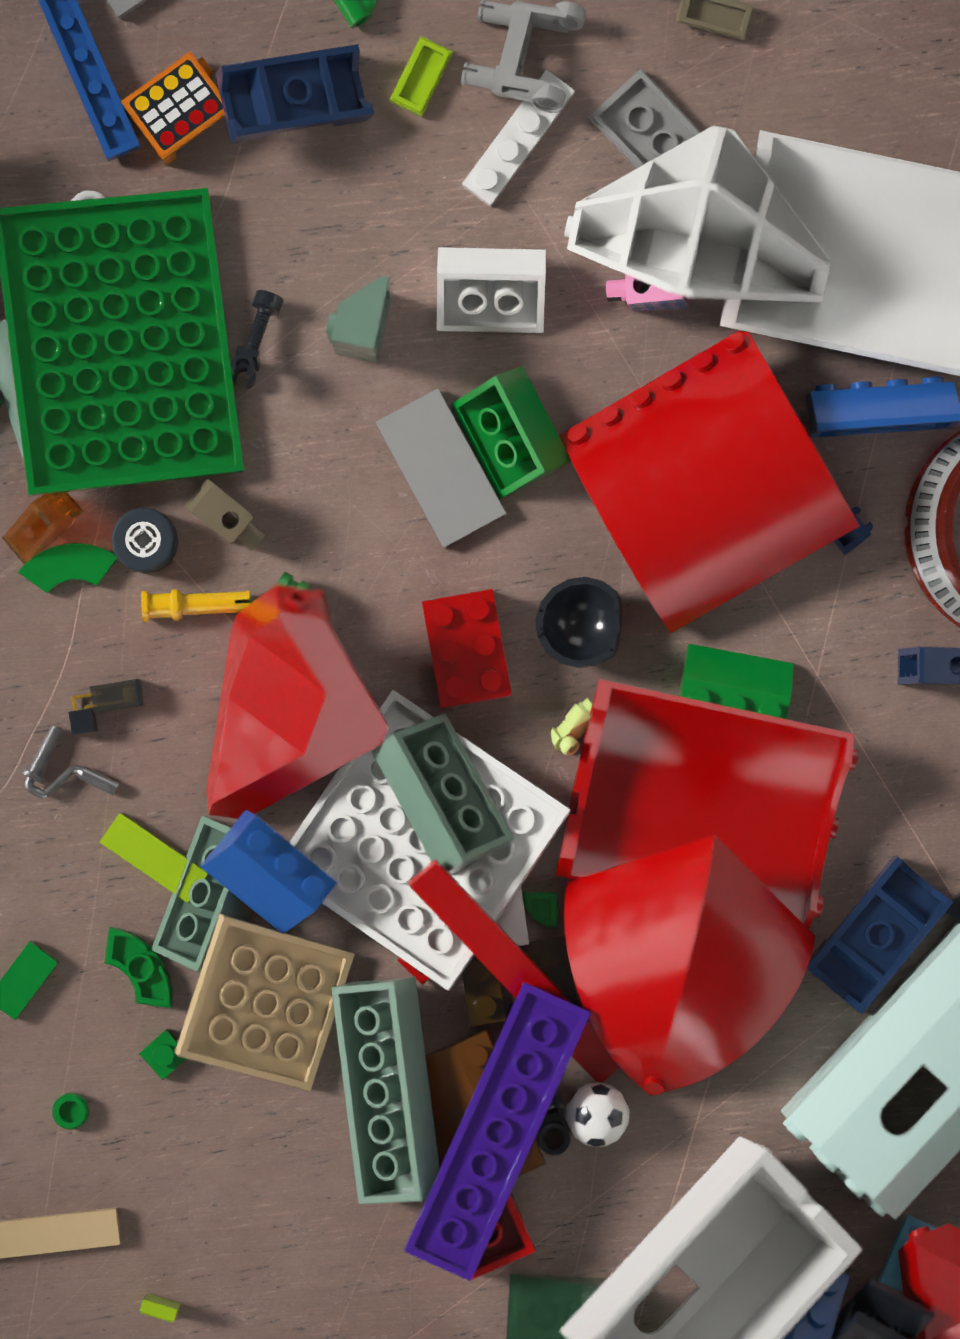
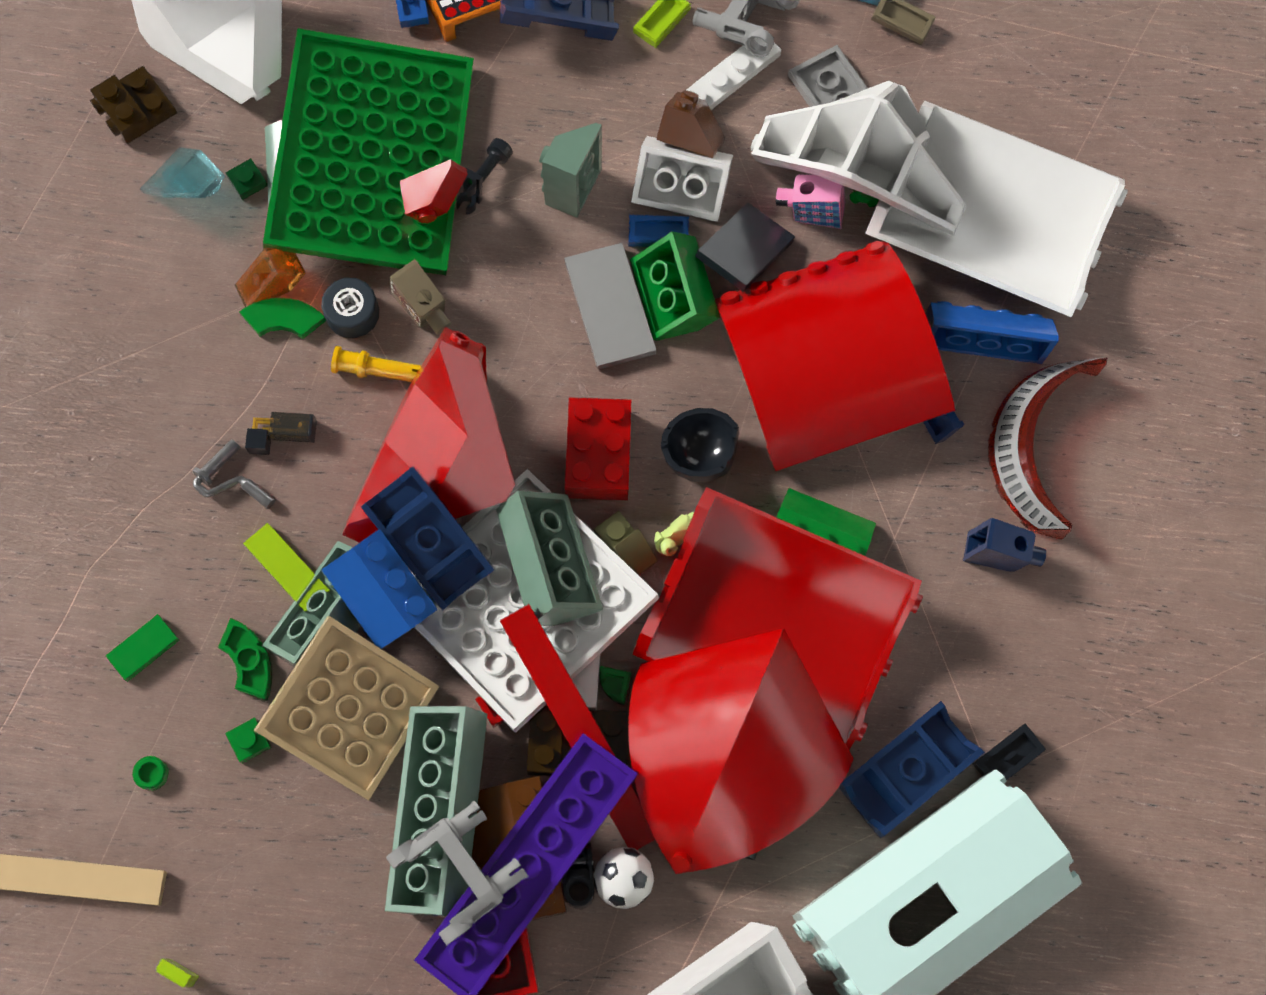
camera: 10 degrees right, 15 degrees down
(206, 389) = (432, 191): none -> slope
(305, 805) = (428, 537): none -> dark blue piece
(460, 1167) = (449, 836): none -> light grey connector
(476, 361) = (648, 229): none -> blue tile
(490, 228) = (690, 125): none -> reddish brown slope
(520, 750) = (626, 543): none -> olive slope
(583, 364) = (745, 246): none -> black tile

